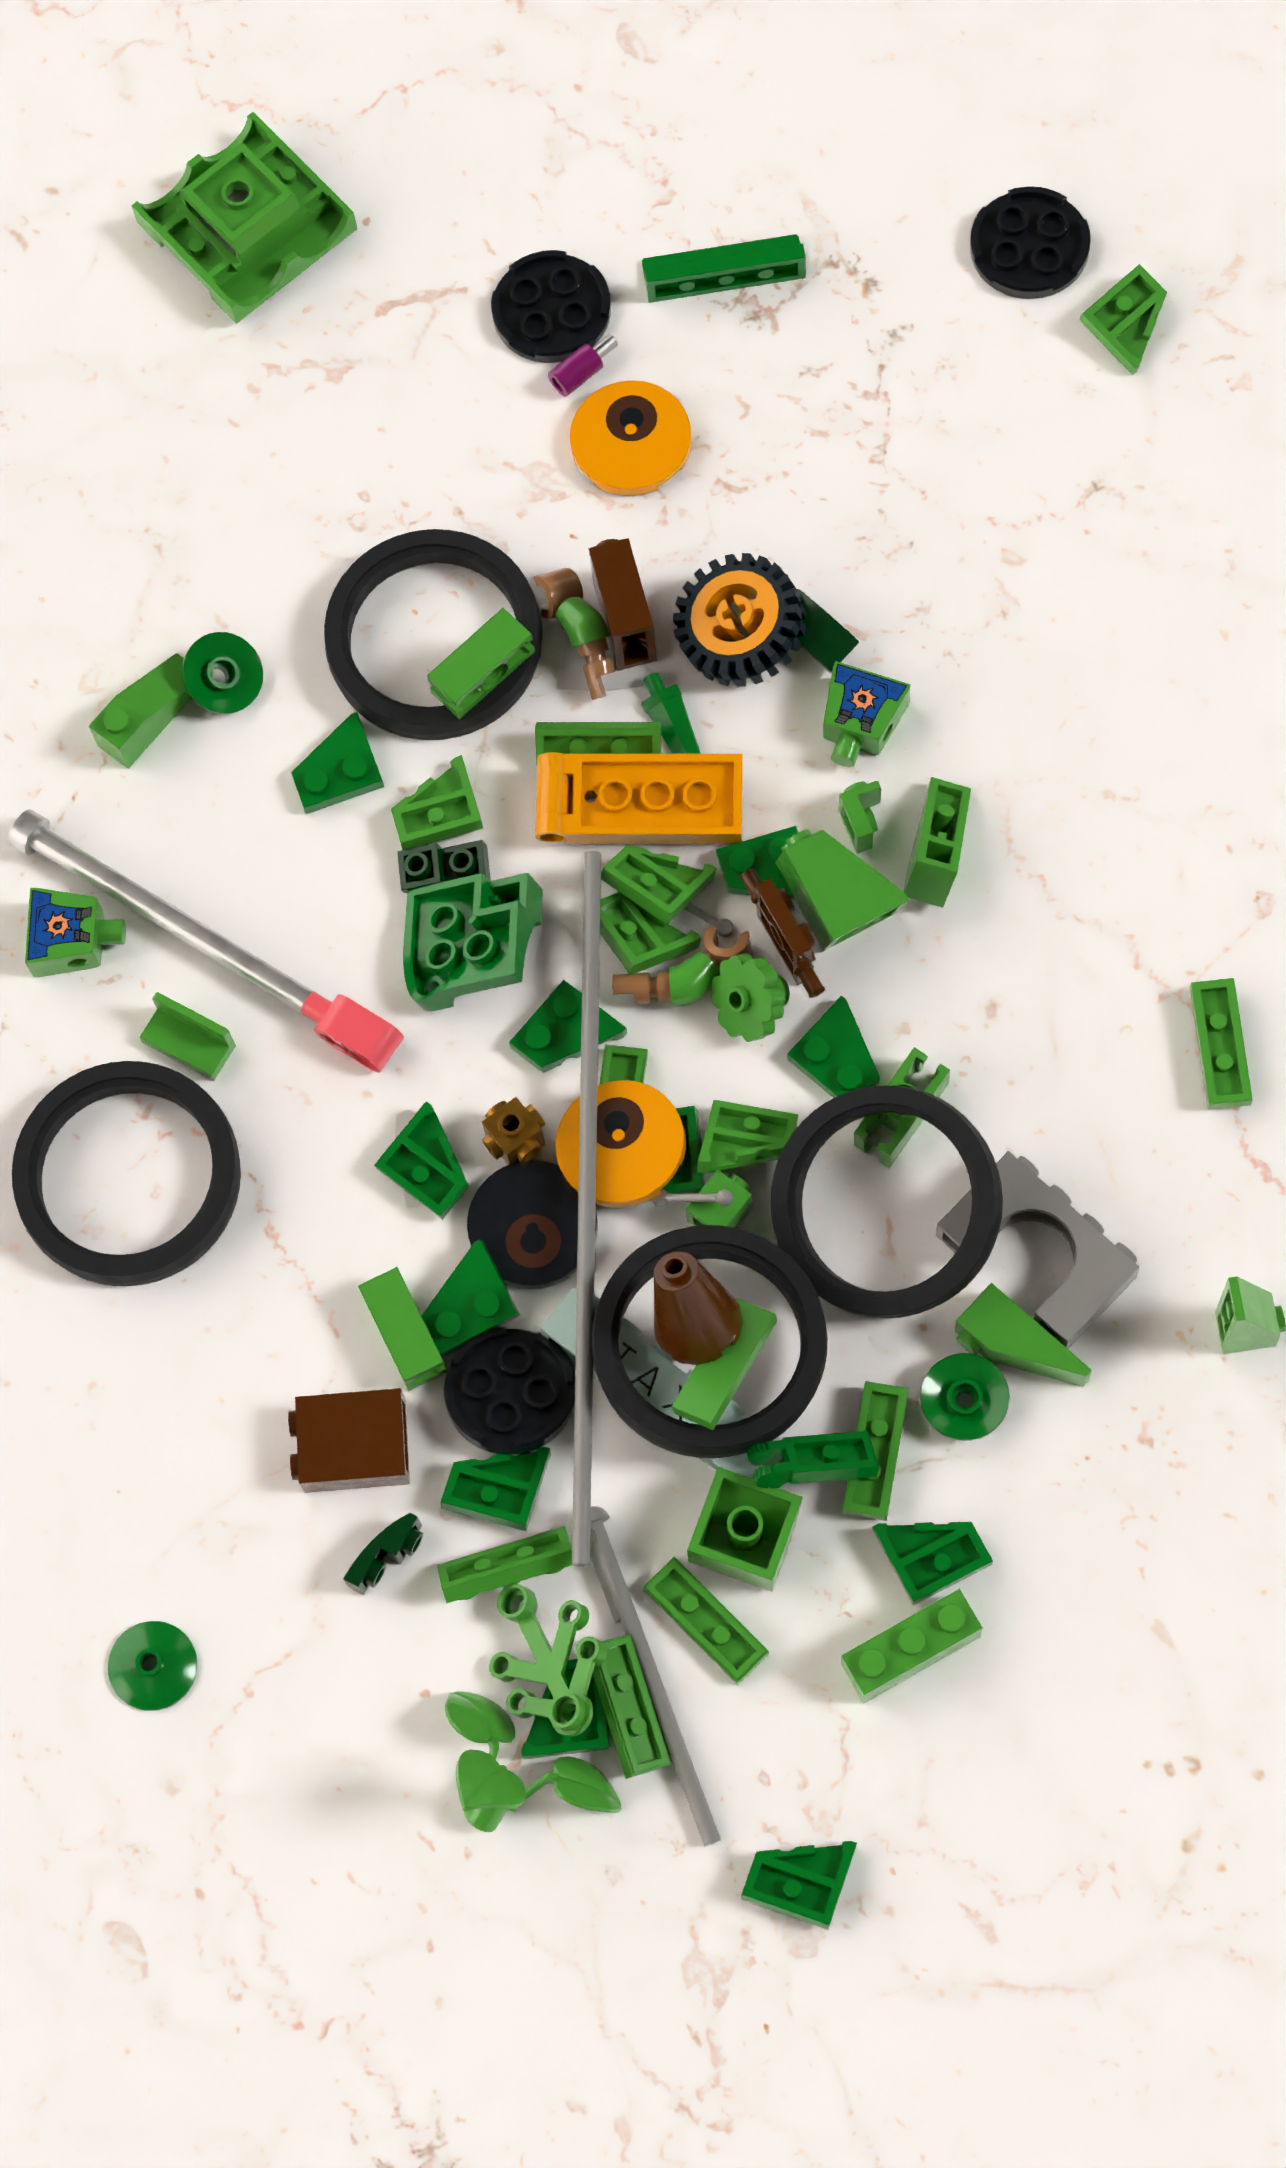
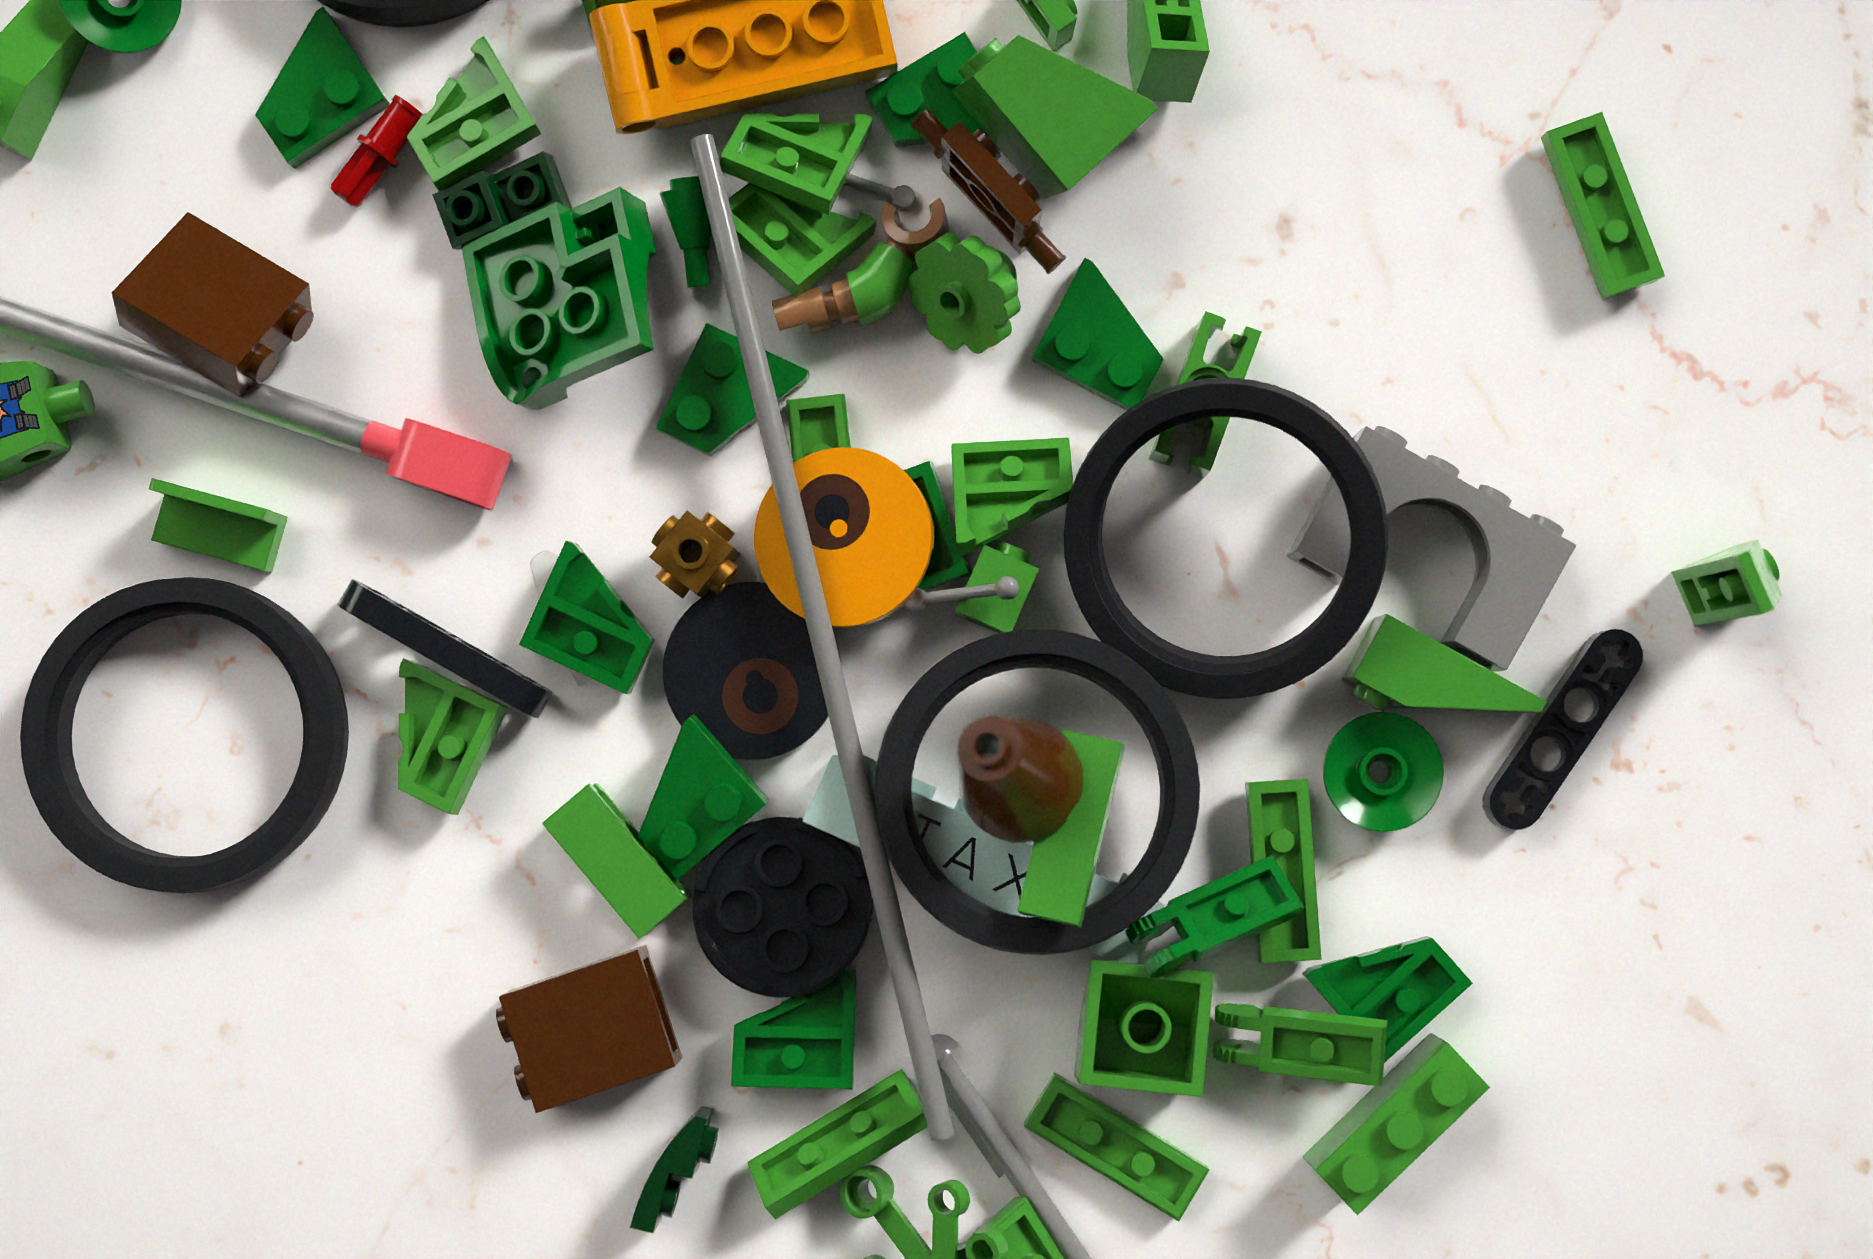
camera: 20 degrees left, 15 degrees up
(230, 889) = (214, 305): none -> reddish brown brick
(304, 1216) = (443, 736): none -> bright green wing
(322, 1157) = (445, 648): none -> black beam
(366, 815) = (376, 152): none -> red axle
(569, 906) = (691, 227): none -> green cone
(862, 1572) = (1305, 1043): none -> bright green hinge
(1102, 1398) = (1569, 735): none -> black beam

